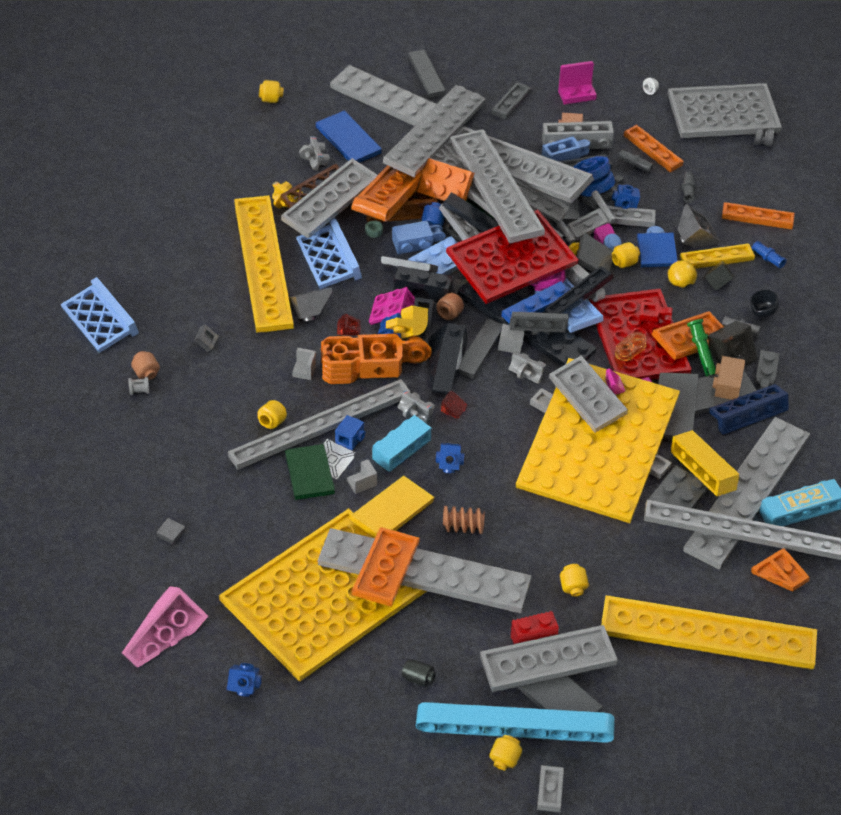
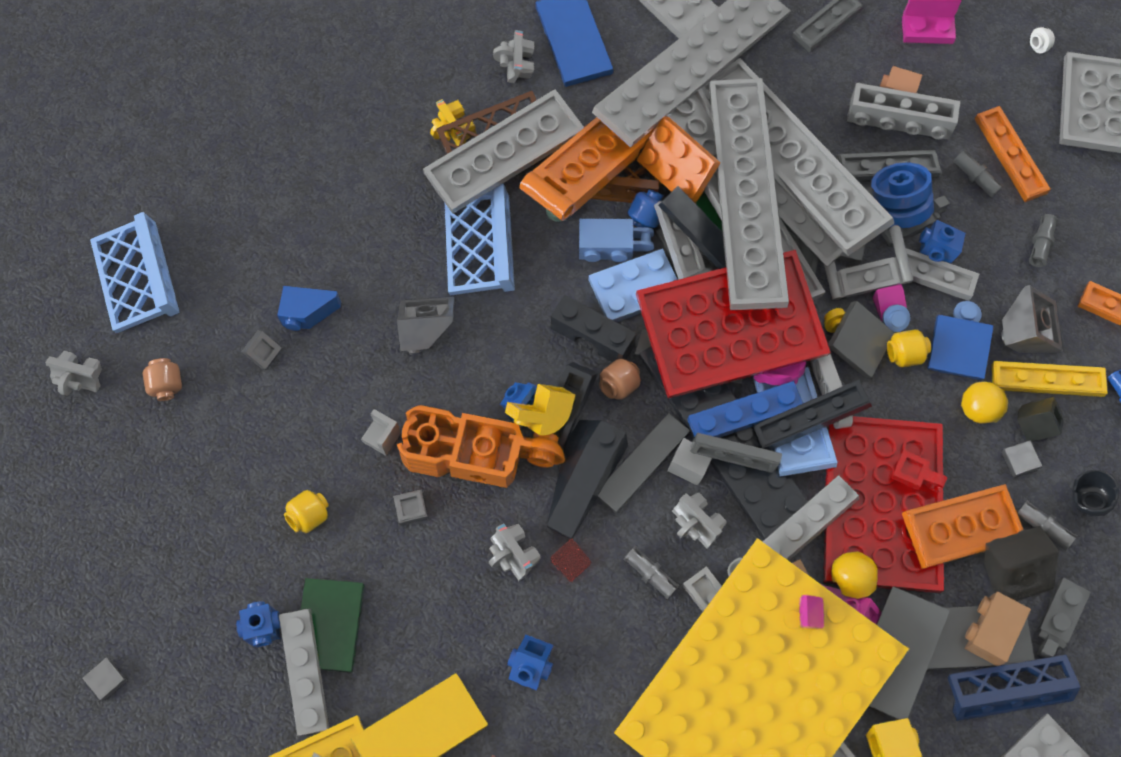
camera: 20 degrees right, 20 degrees up
(81, 376) = (71, 375): none -> light grey hips
(138, 385) = (134, 408): light grey bush -> none
(228, 309) = (306, 307): none -> blue slope
(263, 264) = (382, 237): yellow plate -> none
(265, 477) = (266, 630): none -> blue brick
(304, 493) = (304, 672): none -> light grey plate
(316, 425) = (367, 544): light grey plate -> none
(337, 398) = (410, 507): none -> flat silver tile
(338, 457) = (378, 607): white sticker -> none
(348, 325) = (468, 373): clear red slope -> none
(349, 432) = (405, 572): blue brick -> none
(365, 479) = (397, 660): light grey panel -> none
(390, 304) = (538, 358): dark pink bracket -> none
(401, 443) = (471, 612): medium azure brick -> none
(410, 264) = (583, 291): tile -> none
(507, 400) = (651, 572): none -> flat silver pin
(566, 149) = (875, 136): medium blue brick -> none
(588, 394) = (764, 621): light grey plate -> none
(602, 344) = (812, 518): none -> light grey plate
(630, 346) = (864, 525): clear orange plate -> none
(635, 366) = (855, 574): none -> yellow hair
(700, 339) = (972, 548): green pin -> none
(715, 298) = (1021, 459): none -> flat silver tile

